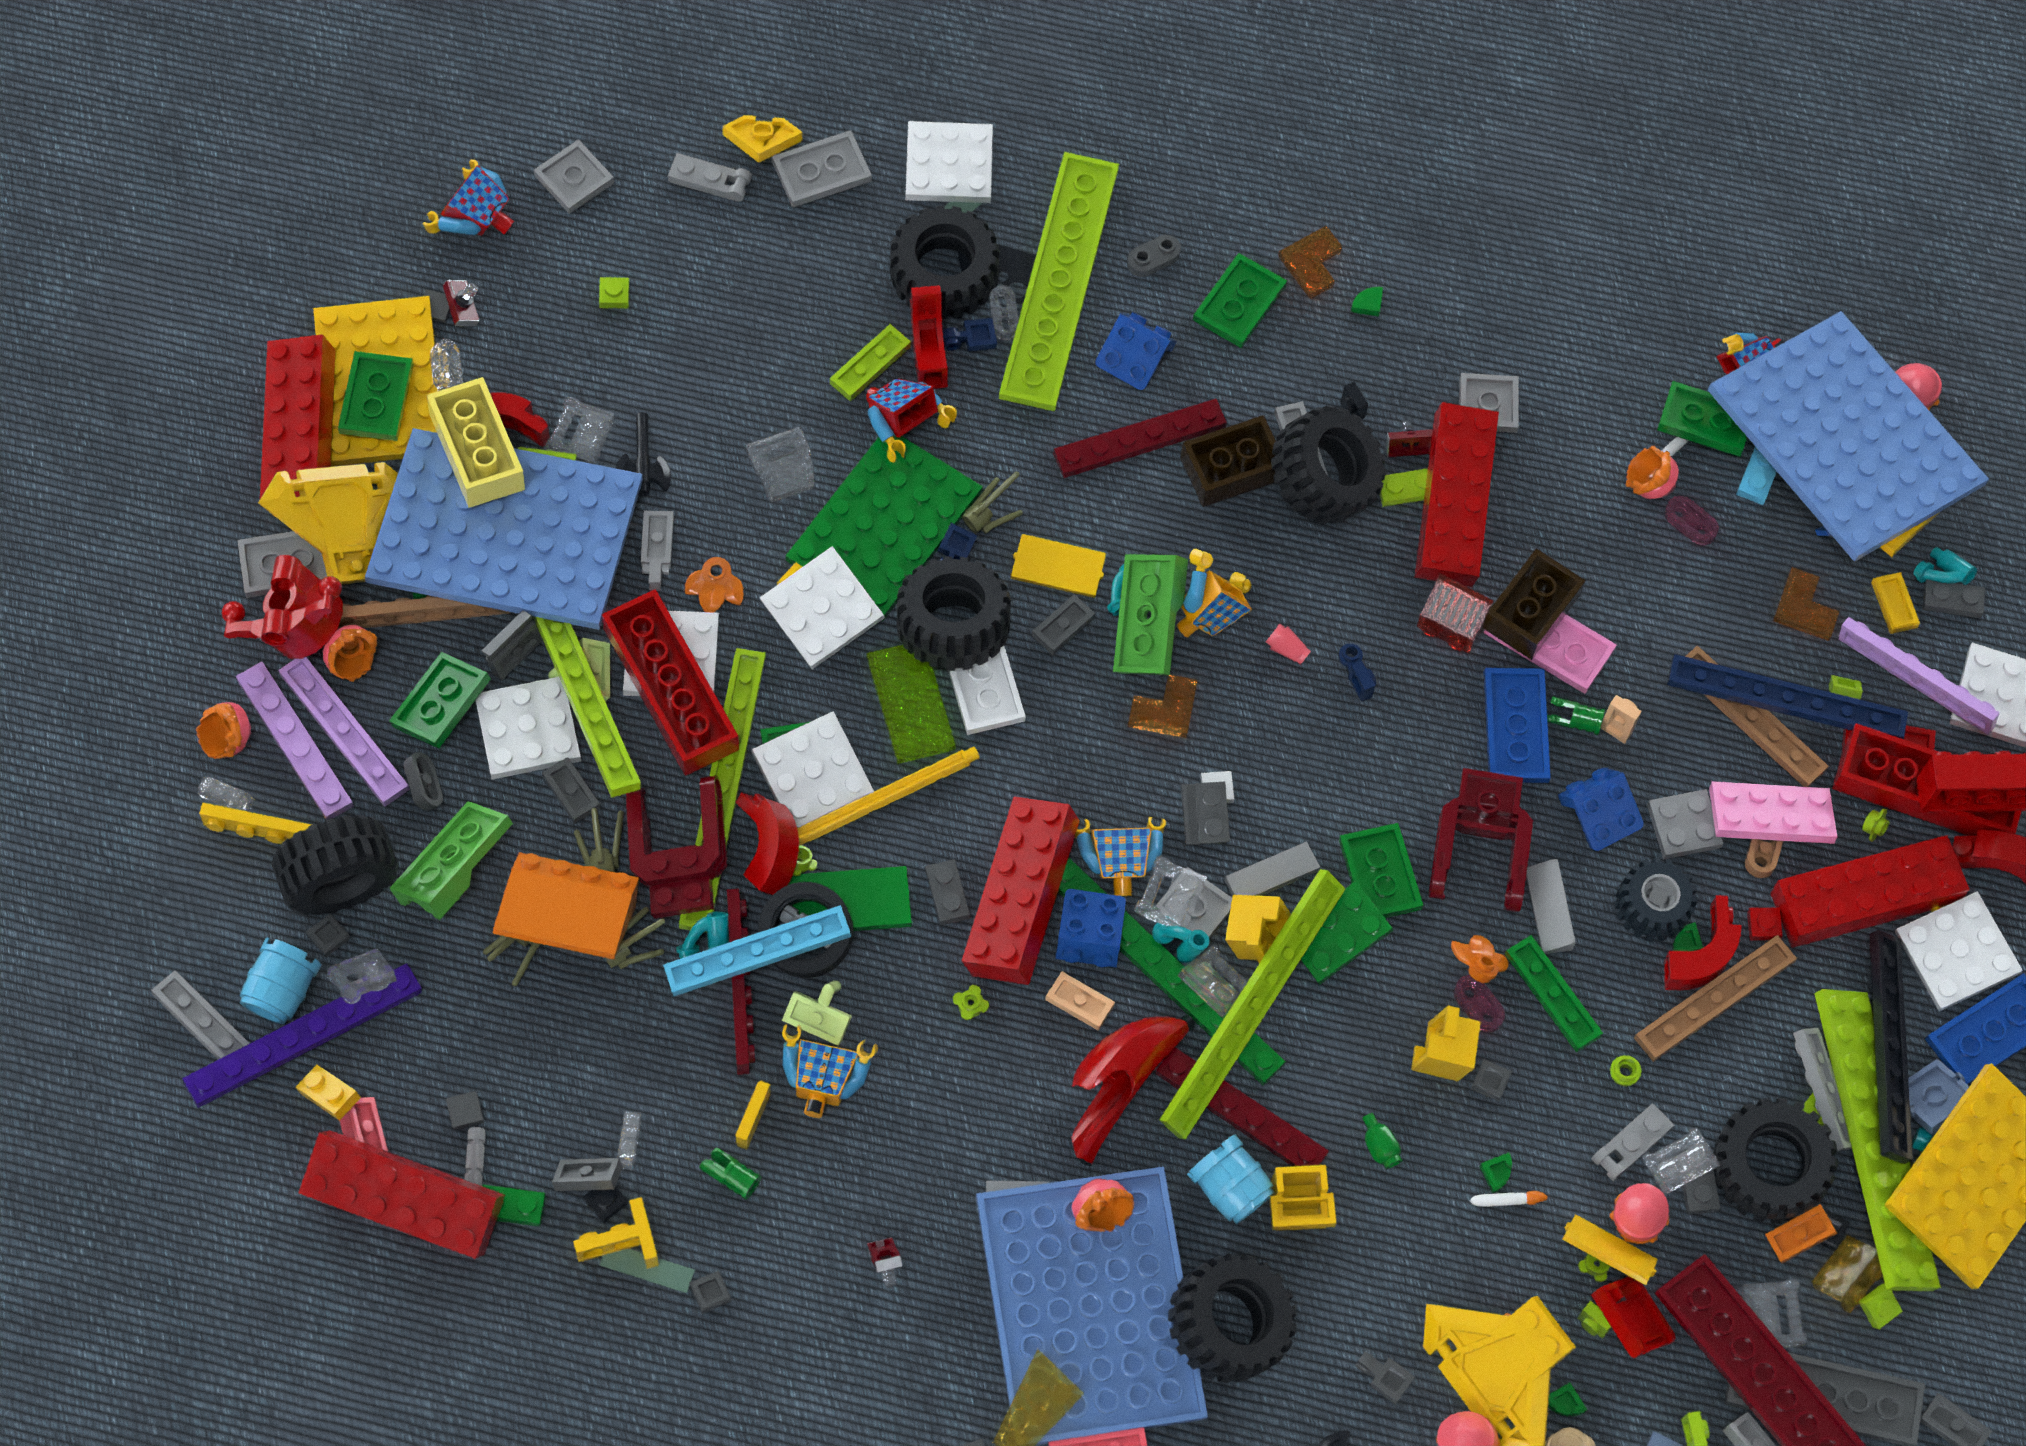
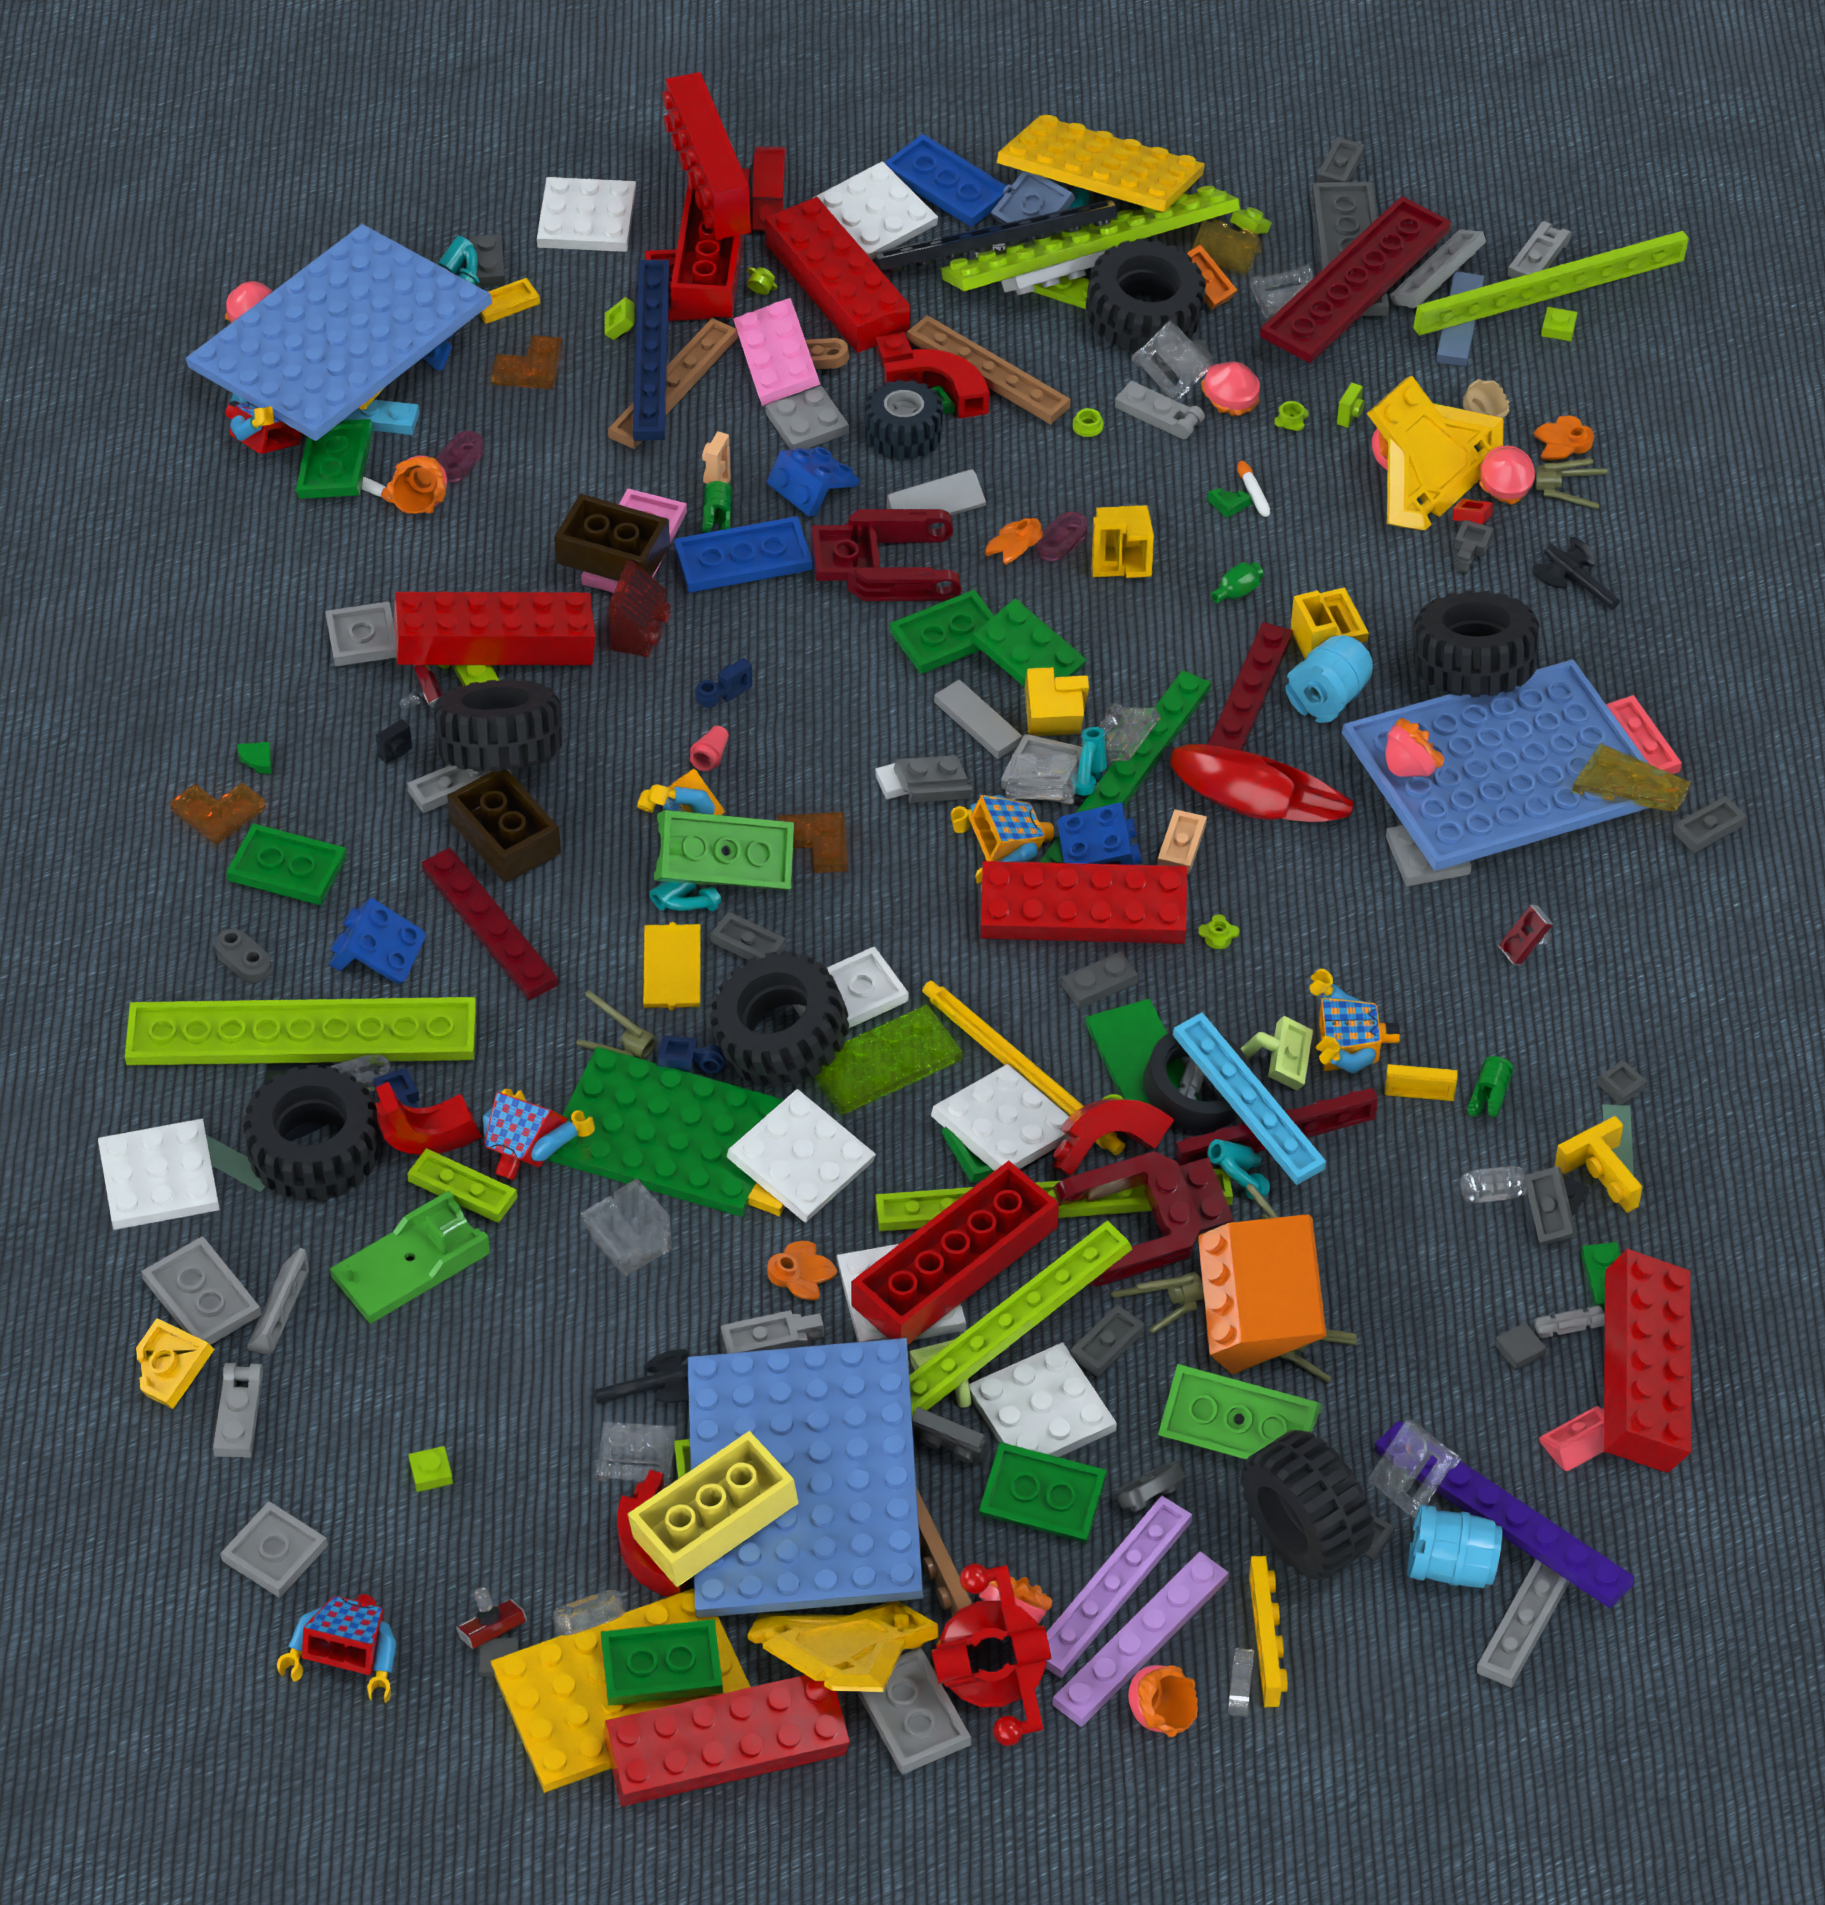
camera: 100 degrees left, 15 degrees down
(328, 1092) = (1558, 1470): yellow plate -> none
(796, 220) = (279, 1304): none -> light grey slope
(819, 339) = (433, 1234): none -> bright green piece
(1252, 1004) = (1154, 692): lime plate -> none
(1426, 1391) = (1473, 511): none -> red plate
(1553, 993) = (1028, 484): green plate -> none
(1610, 1249) = (1278, 402): yellow piece -> none
(1636, 1319) = (1337, 375): red container -> none
(1926, 680) = (592, 263): lavender plate -> none

